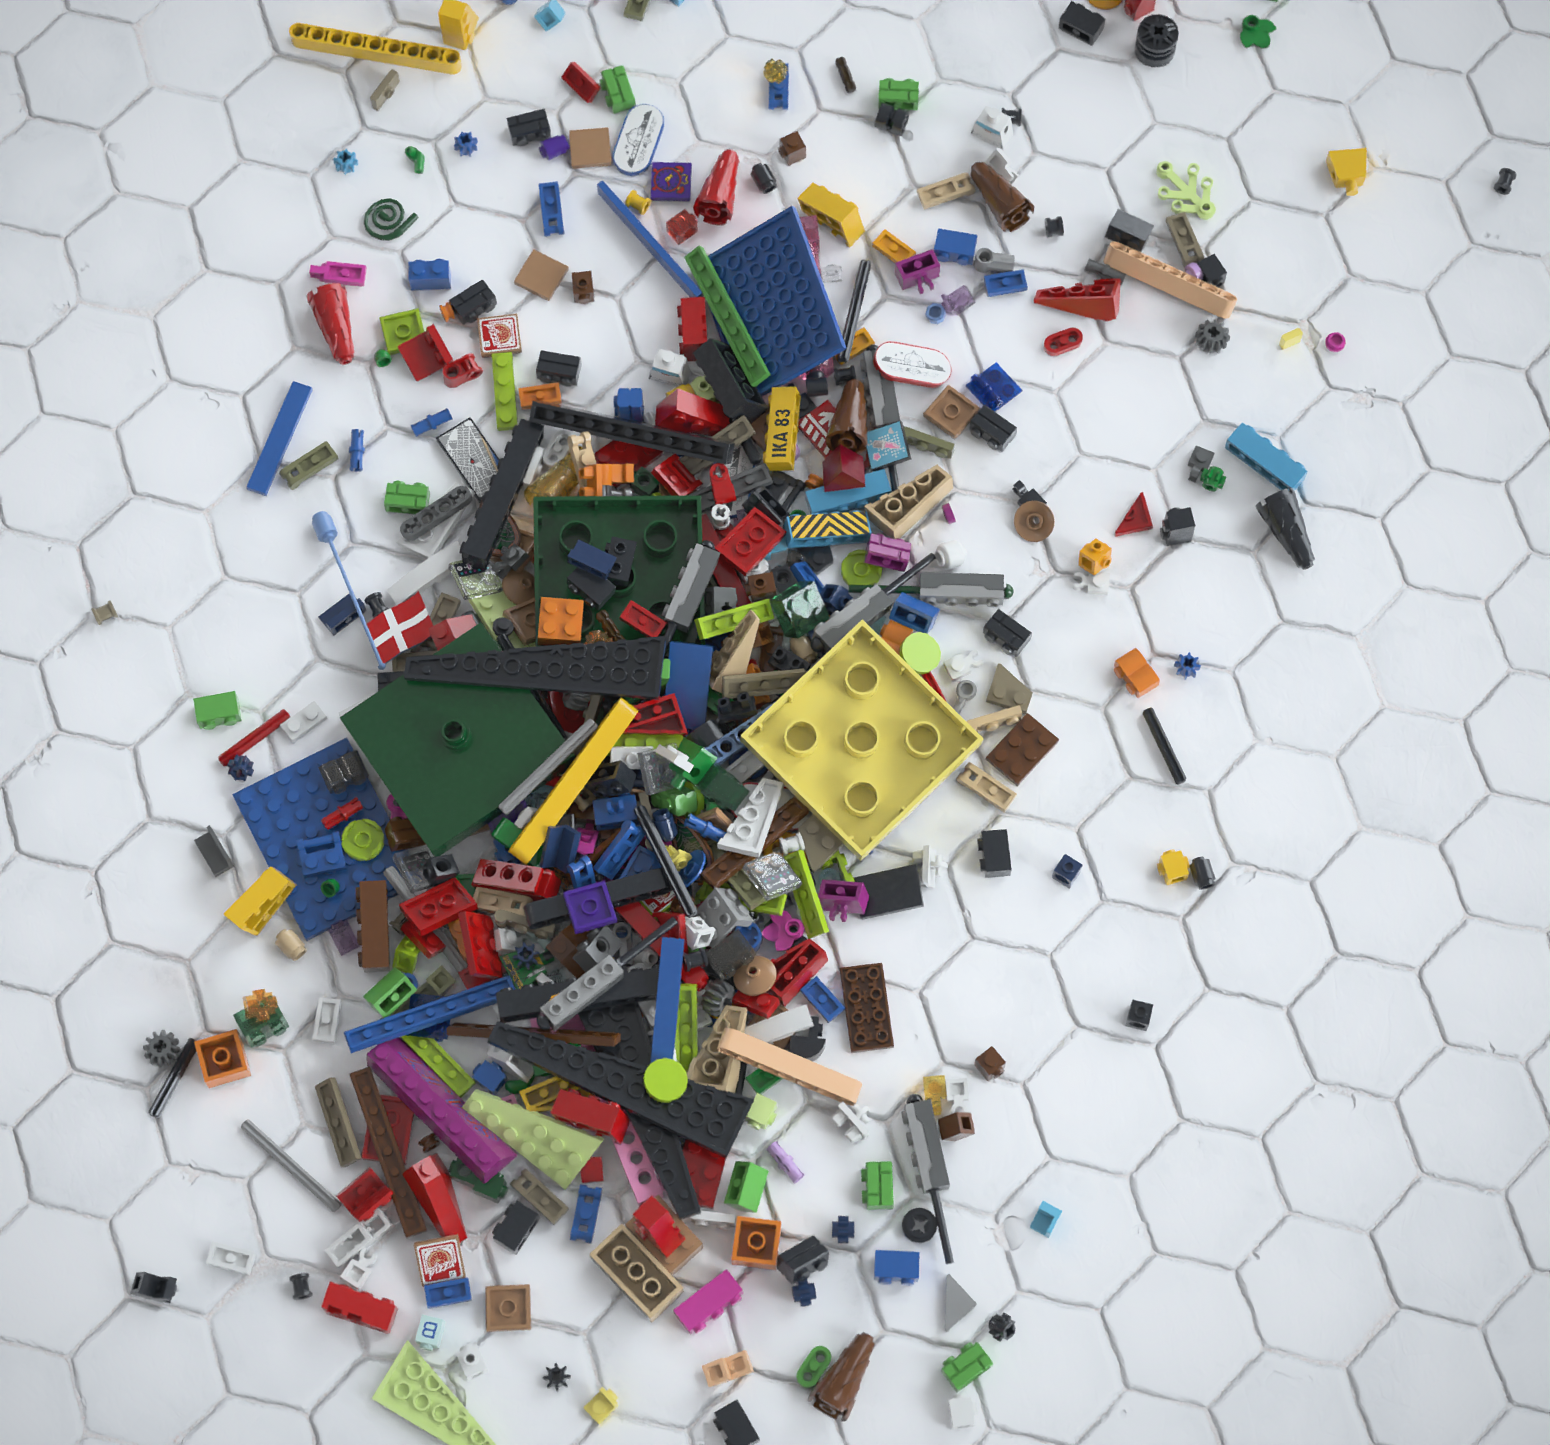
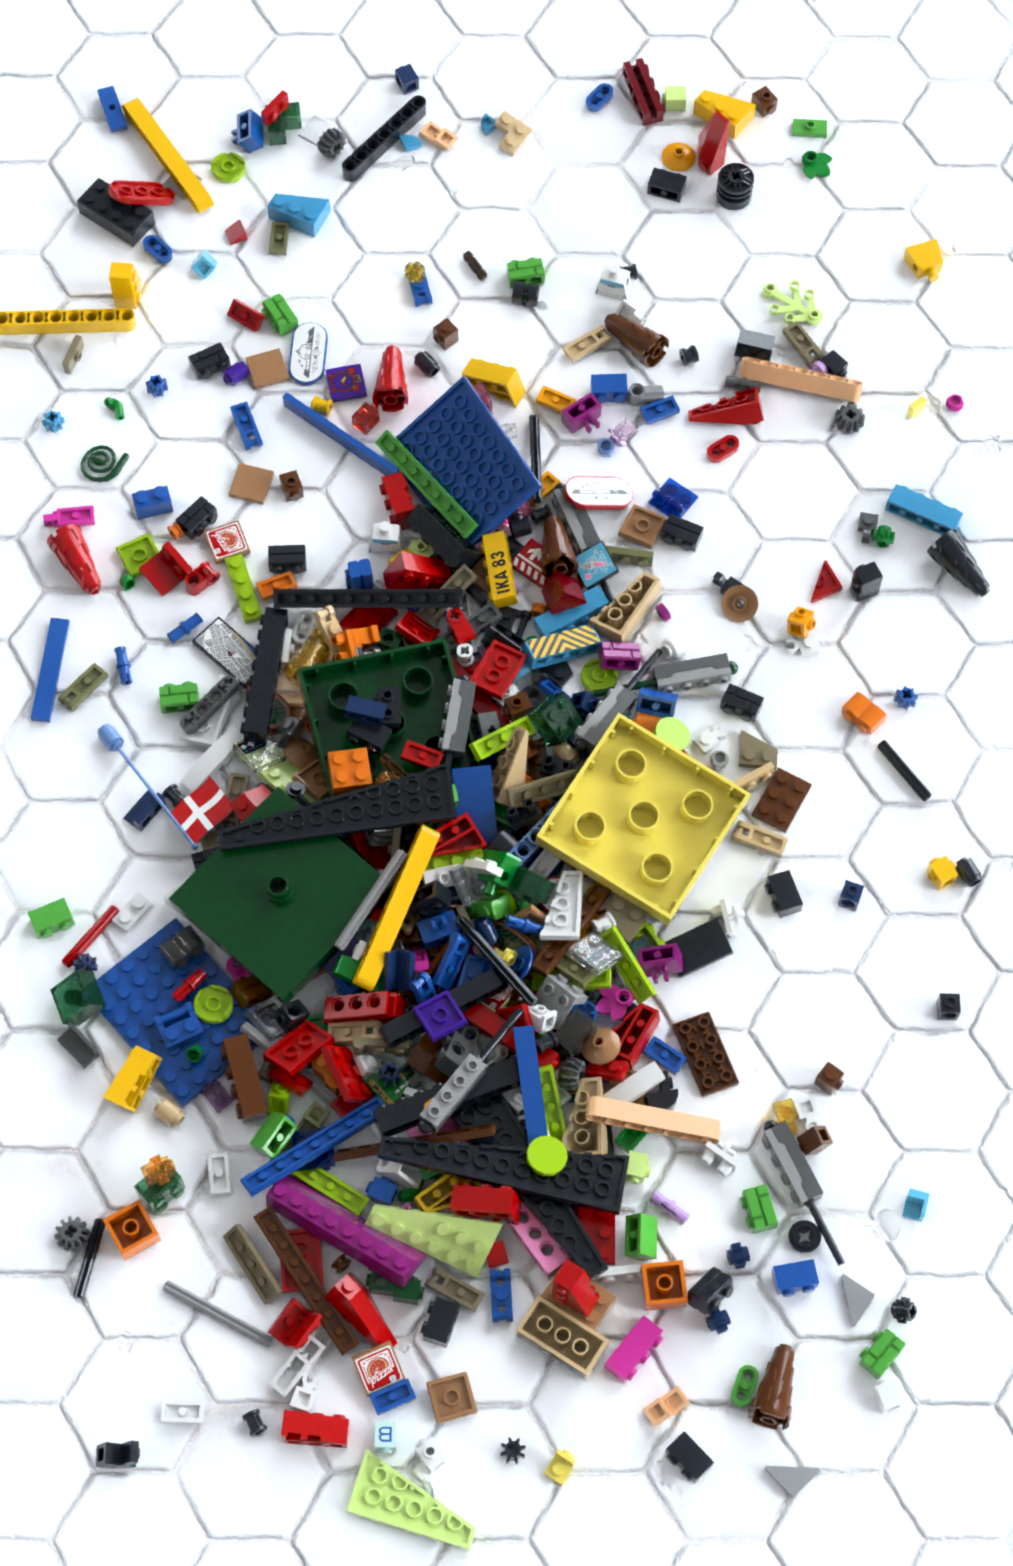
camera: 15 degrees left, 5 degrees down
(224, 801) = (78, 997): none -> clear green brick

